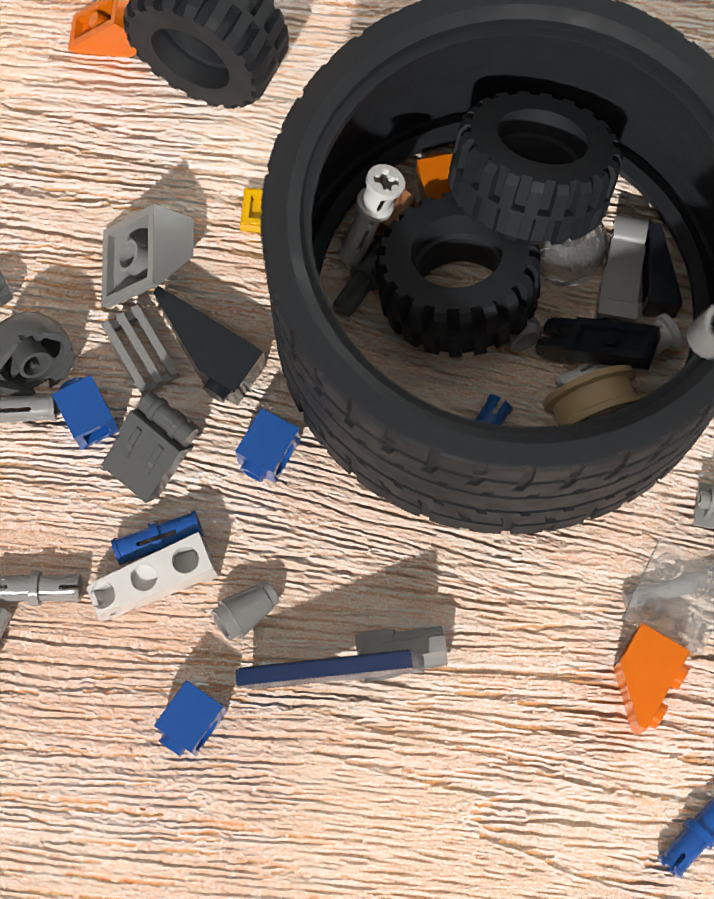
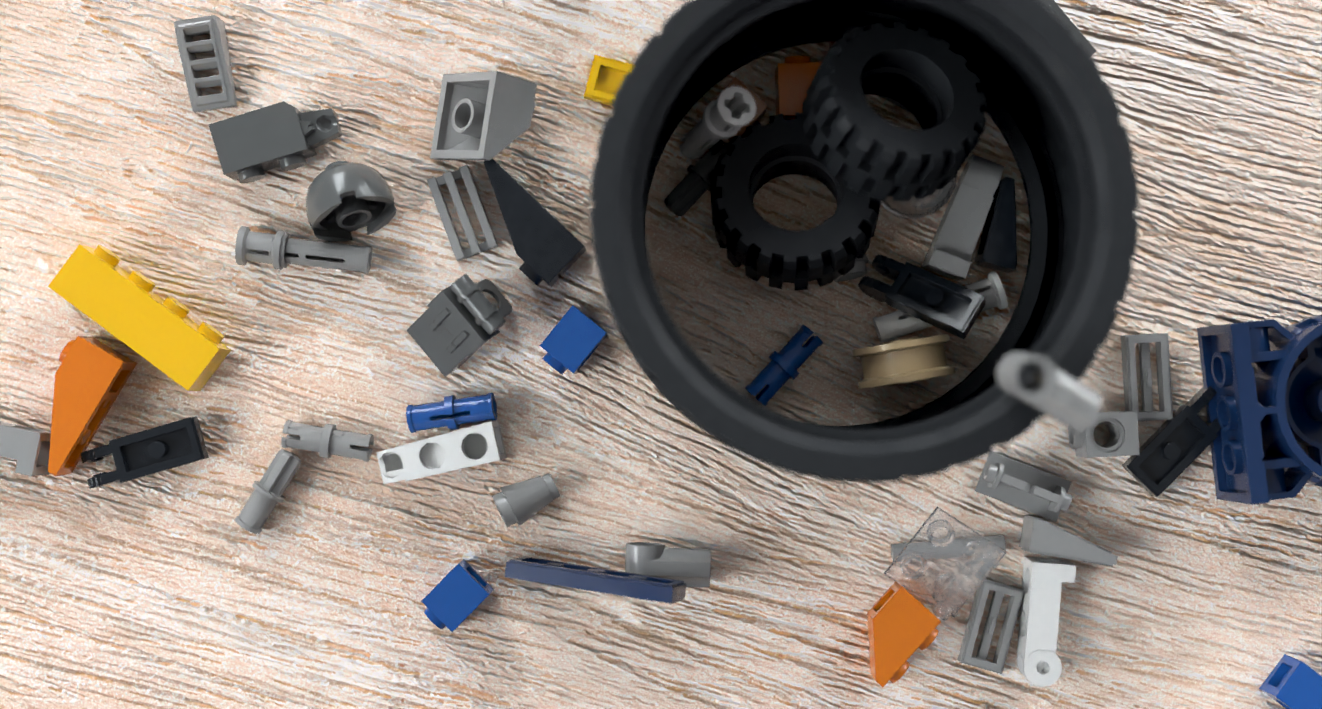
camera: 10 degrees right, 15 degrees up
(85, 411) = (398, 271): blue brick -> none

